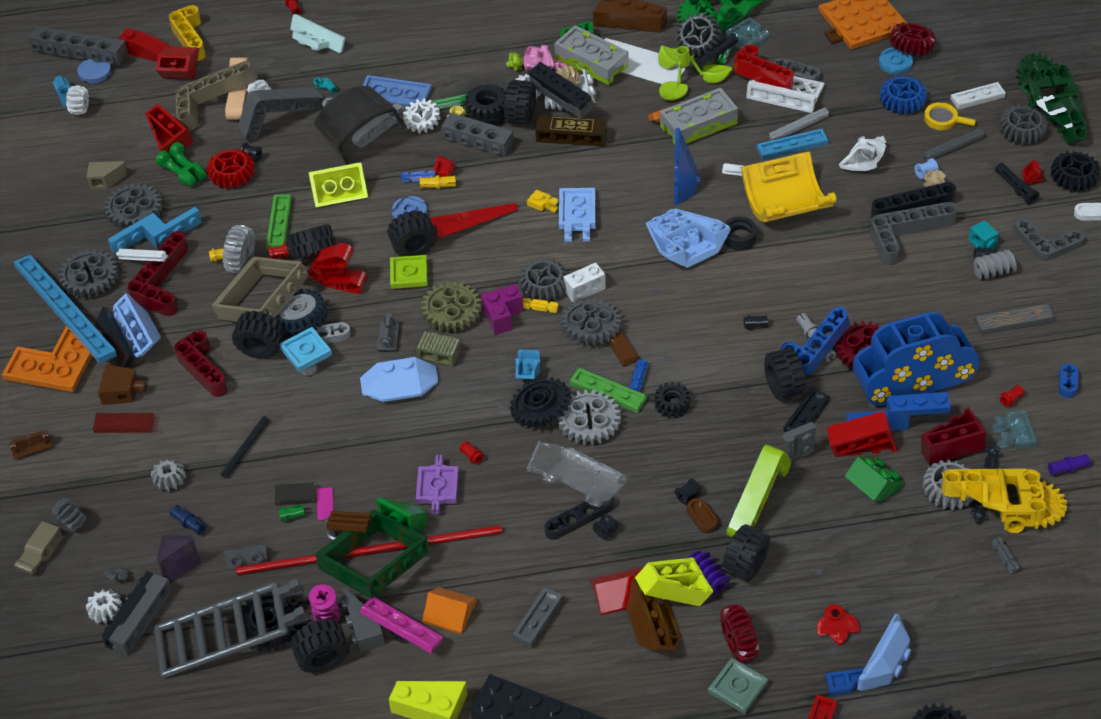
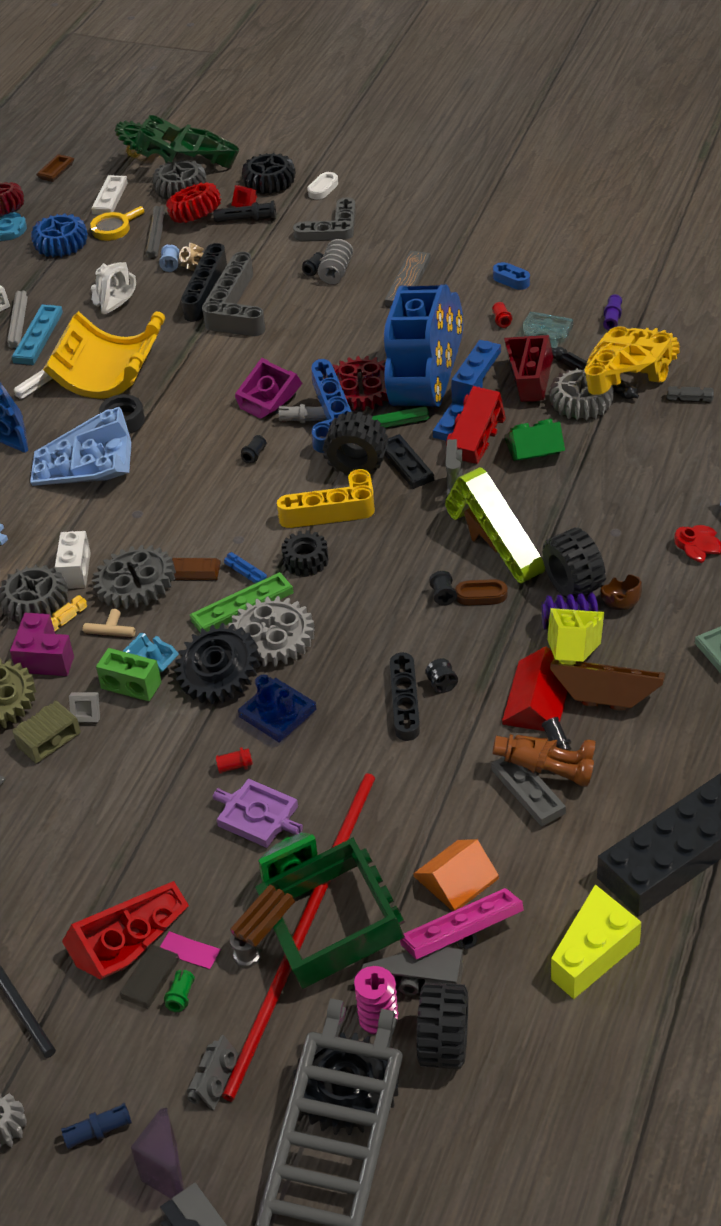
camera: 60 degrees left, 5 degrees down
(309, 463) = (121, 933): none -> red wedge
(399, 379) = (58, 794): light blue wedge -> none
(468, 356) = (85, 706): none -> light grey tile
(502, 363) = (128, 674): none -> bright green brick
(520, 450) = (276, 708): none -> clear blue plate
(544, 334) = (110, 627): none -> tan piece
(561, 606) = (543, 754): none -> dark orange piece
(577, 471) = (360, 662): clear windscreen -> none
(589, 613) = (555, 732): none -> black pin
(738, 403) = (329, 505): none -> yellow beam
(739, 632) = (674, 611): dark red gear -> none
(747, 595) = (622, 594): none -> reddish brown hair
(819, 296) = (266, 389): none -> magenta slope
(844, 385) = (402, 417): none -> green axle
(983, 235) = (286, 254): teal brick -> none
(984, 48) = (55, 167): none -> reddish brown tile
(996, 147) = (193, 202): none -> red gear

